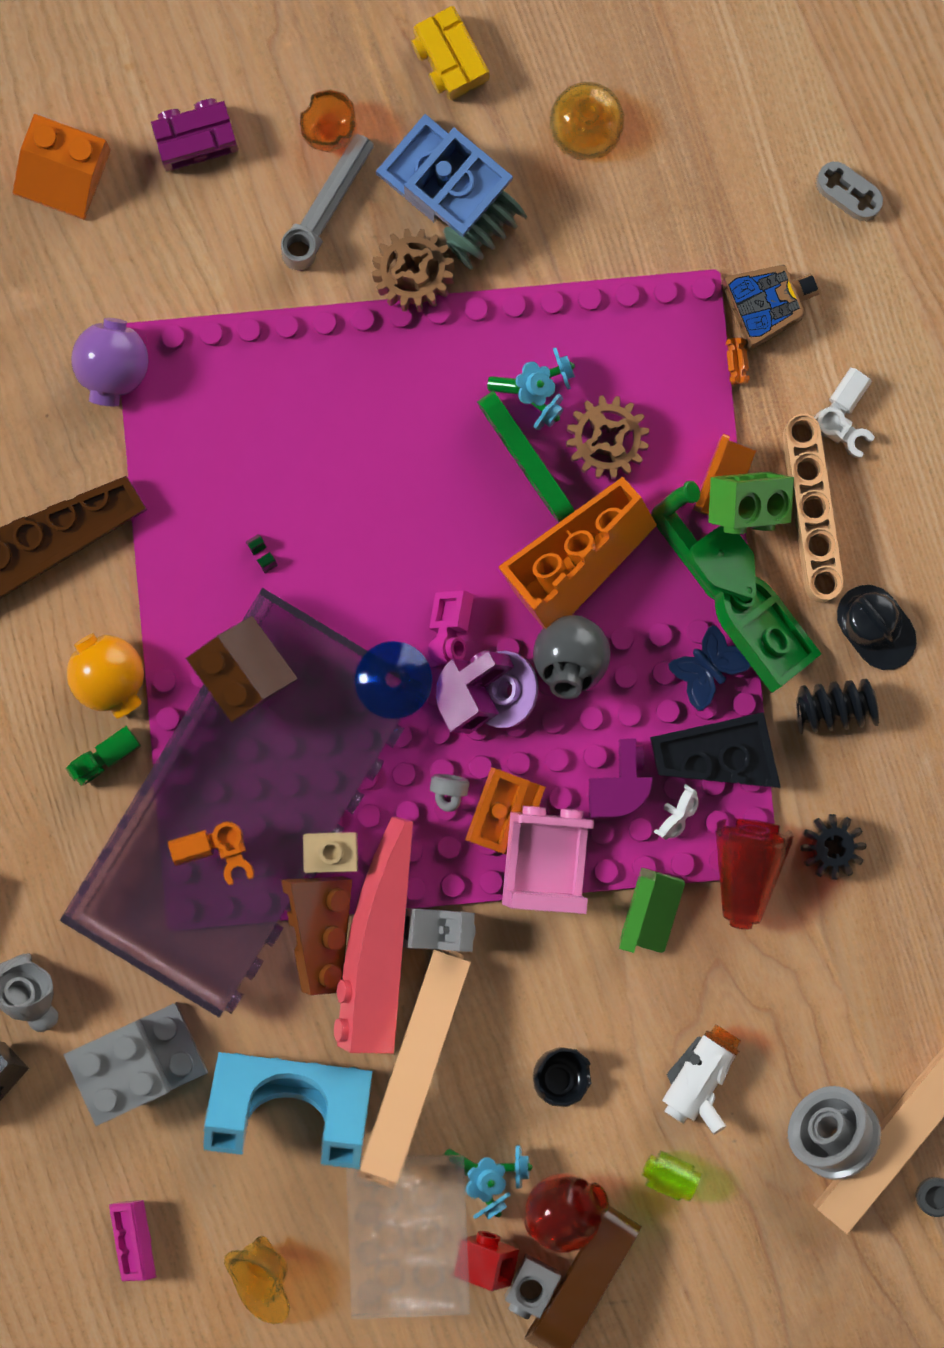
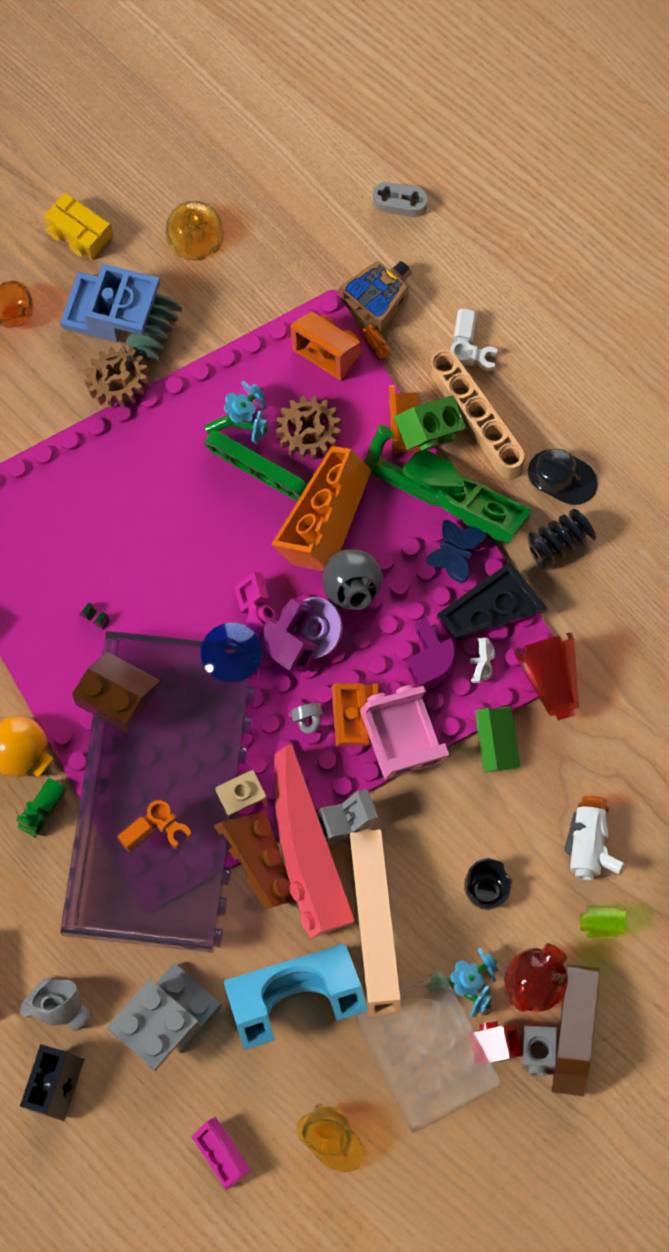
camera: 20 degrees left, 15 degrees down
(325, 204) = (30, 383): light grey axle -> none
(675, 342) = (325, 344): none -> orange slope
(845, 842) = (616, 632): black gear -> none

